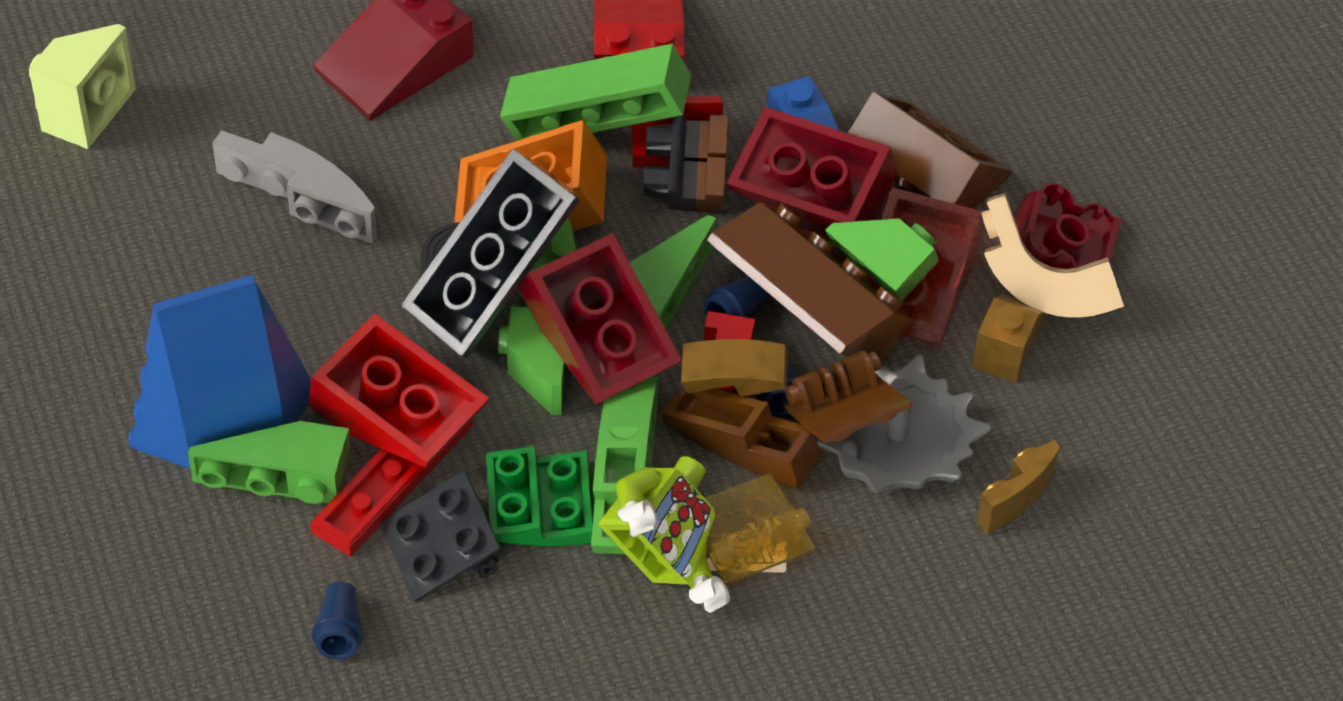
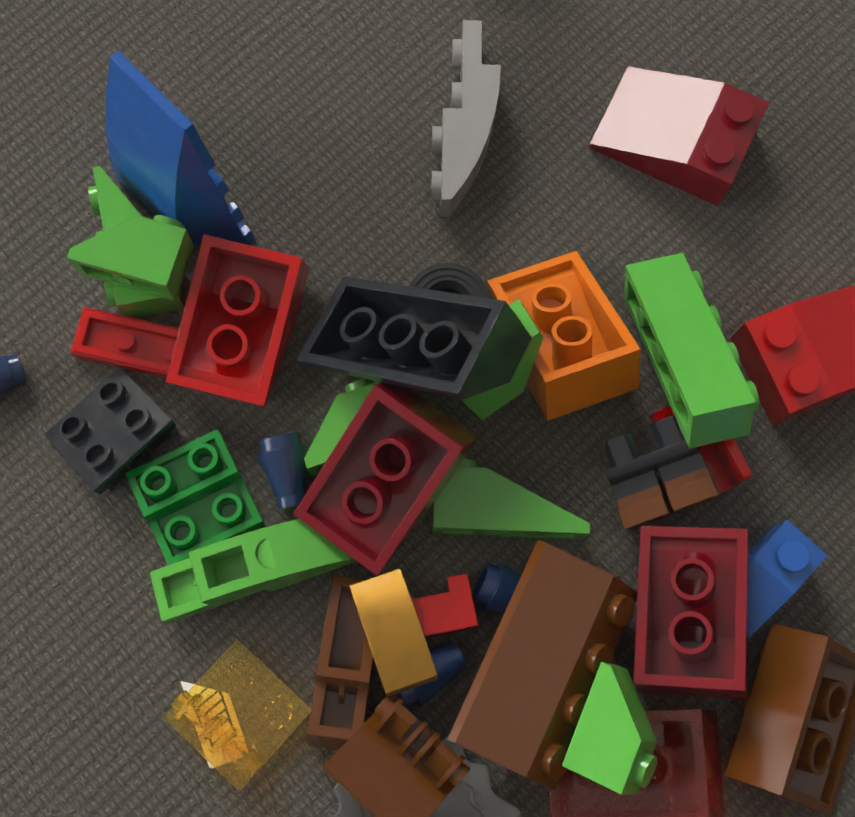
camera: 65 degrees right, 25 degrees up
(309, 427) = (137, 255): none -> bright green slope
(547, 419) = (284, 467): none -> dark blue cone
(665, 528) = (170, 641): torso -> none

